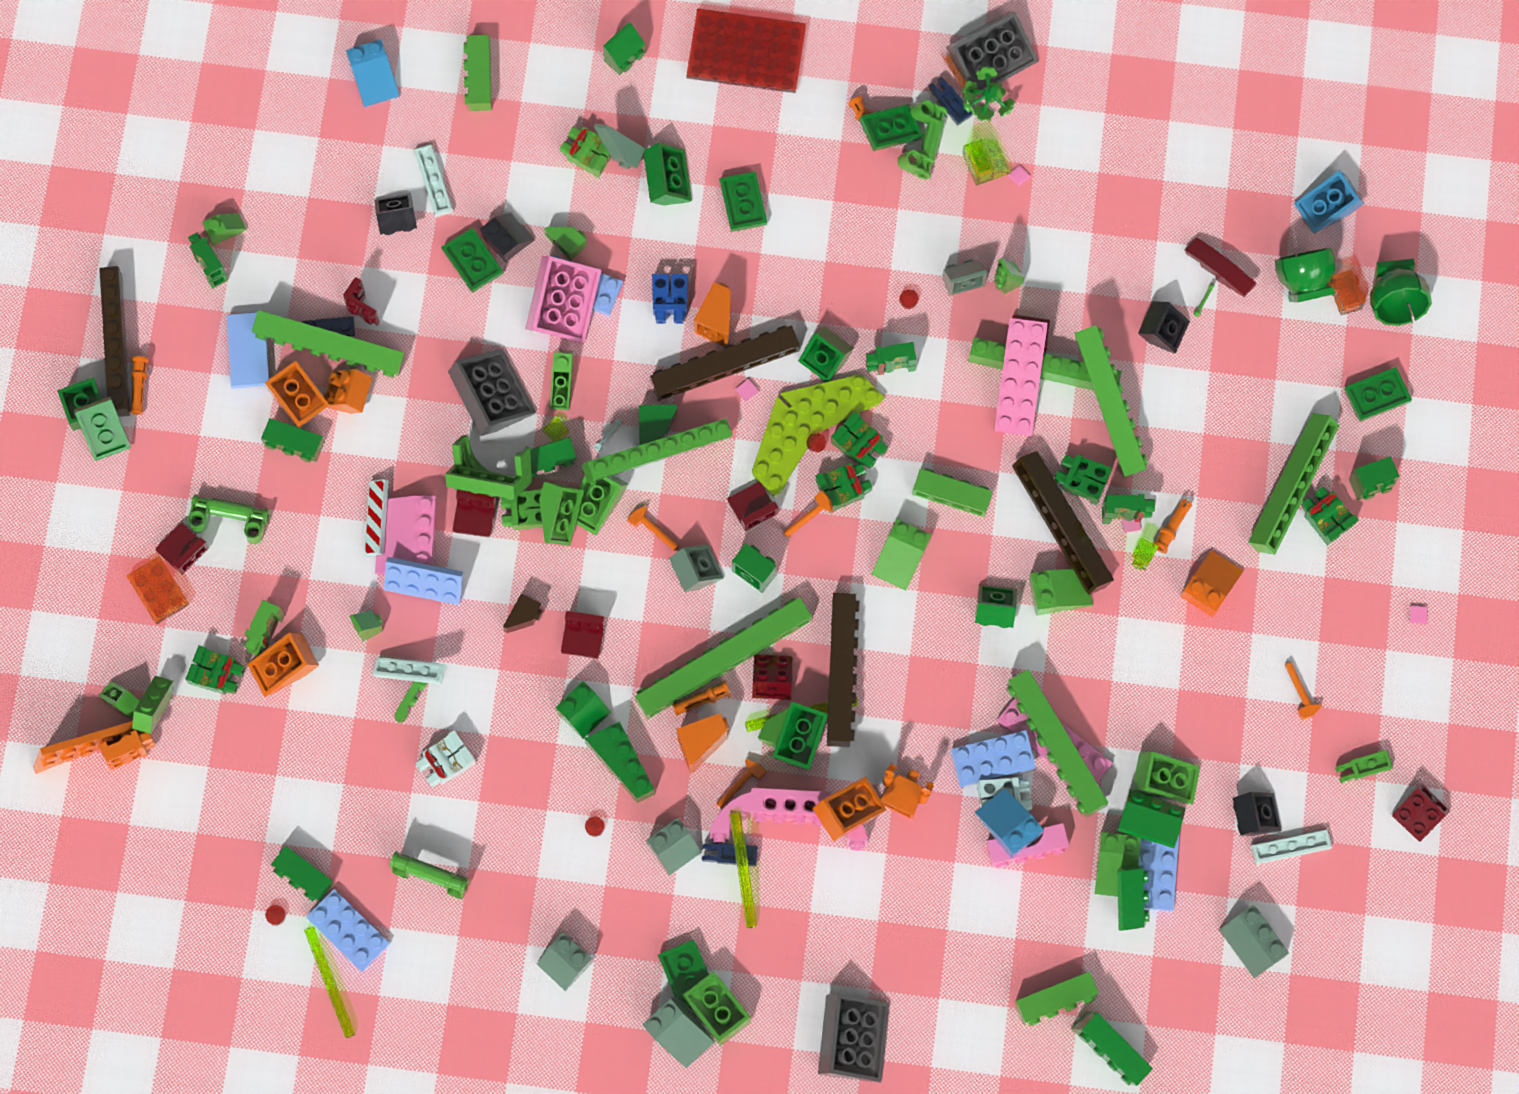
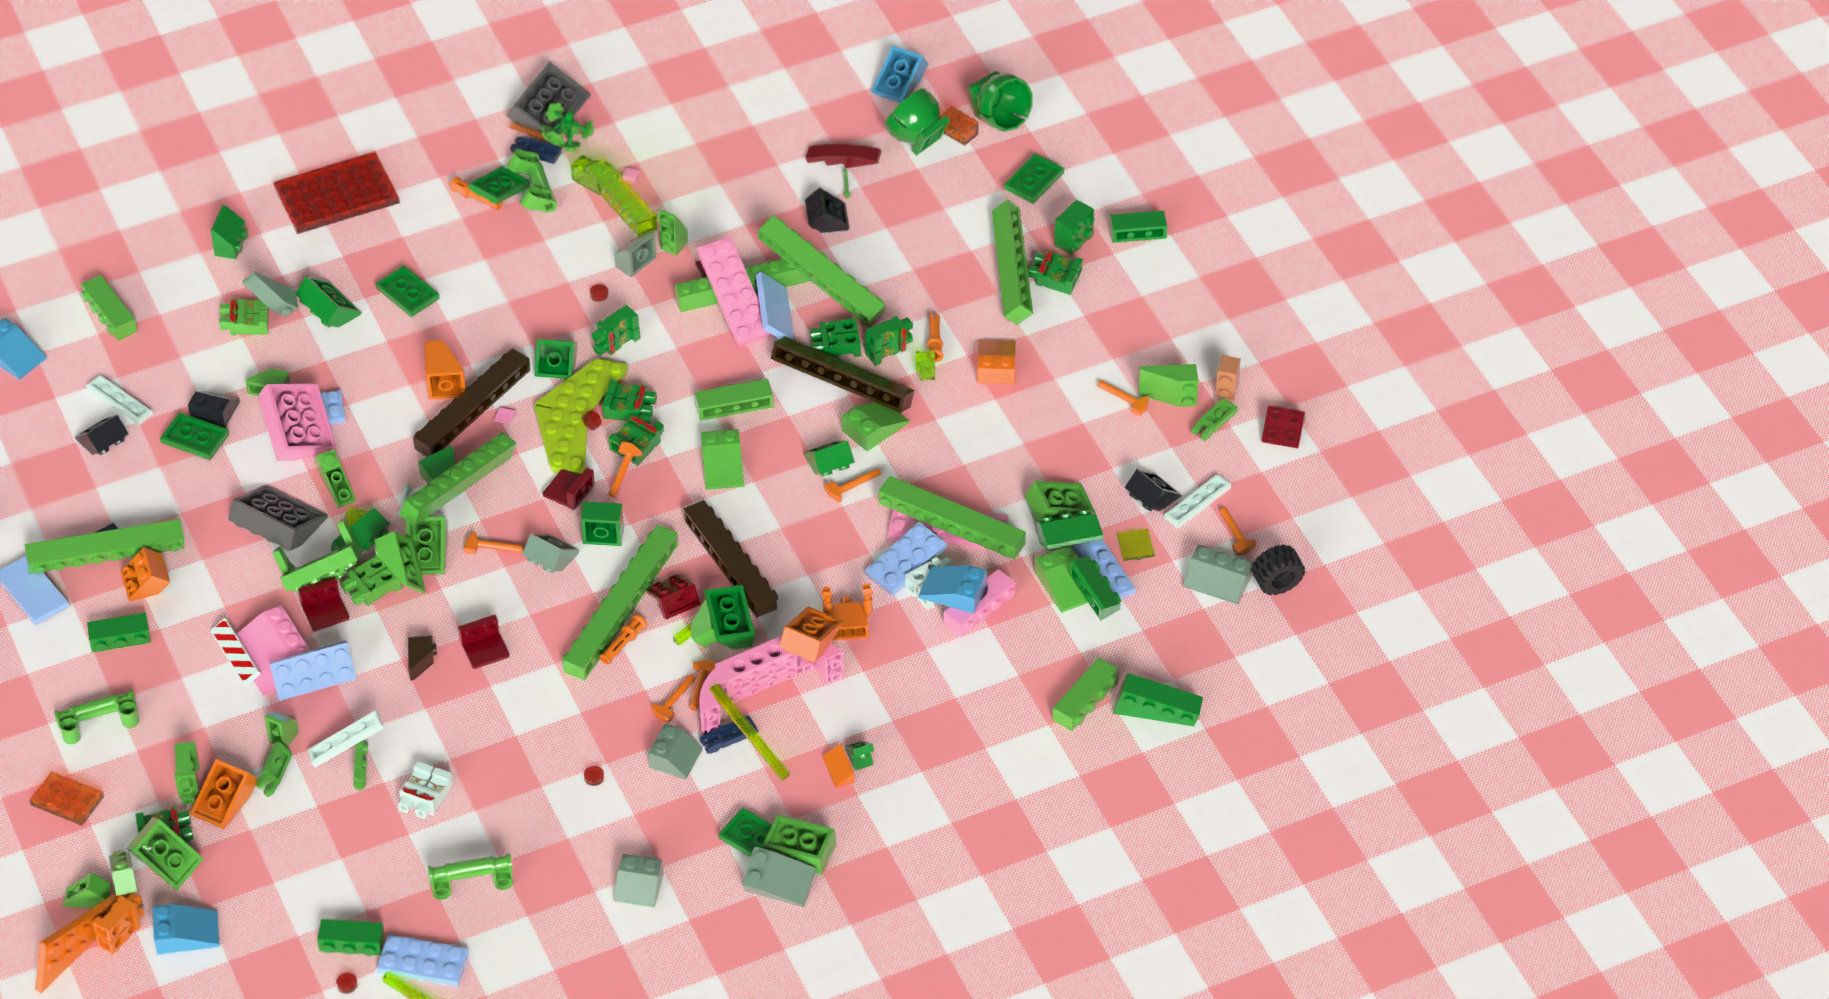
camera: 30 degrees left, 25 degrees down
(177, 783) = (184, 928): none -> dark azure slope
(182, 548) = (70, 757): dark red bracket -> none
(197, 701) = (164, 853): none -> bright green slope
(296, 394) = (99, 594): orange slope -> none
(337, 662) = (274, 768): none -> bright green hinge
(354, 302) = (116, 507): dark red bracket -> none
(582, 710) = (522, 696): green slope -> none
(618, 755) = (585, 713): green wedge -> none
(670, 303) = (390, 382): blue hips -> none
(691, 794) = (663, 711): none -> orange piece
(702, 739) = (643, 662): orange slope -> none
(801, 943) = (839, 766): none -> orange slope
(827, 940) = (860, 754): none -> green slope
(853, 1038) = (932, 808): dark grey slope -> none
(980, 216) = (621, 197): none -> clear neon green brick
(980, 645) = (835, 491): none -> orange piece
(1048, 413) = (774, 307): none -> light blue piece
(1131, 526) = (899, 356): bright pink piece -> none
(1205, 861) = (1135, 545): none -> clear neon green piece
(1300, 920) = (1242, 546): none -> orange piece
(1306, 975) = (1278, 570): none -> black tyre
(1348, 712) = (1170, 384): none -> bright green slope
(1402, 733) = (1228, 377): none -> nougat brick
(1418, 614) = (1178, 303): bright pink piece -> none
(1437, 507) = (1138, 226): none -> green brick

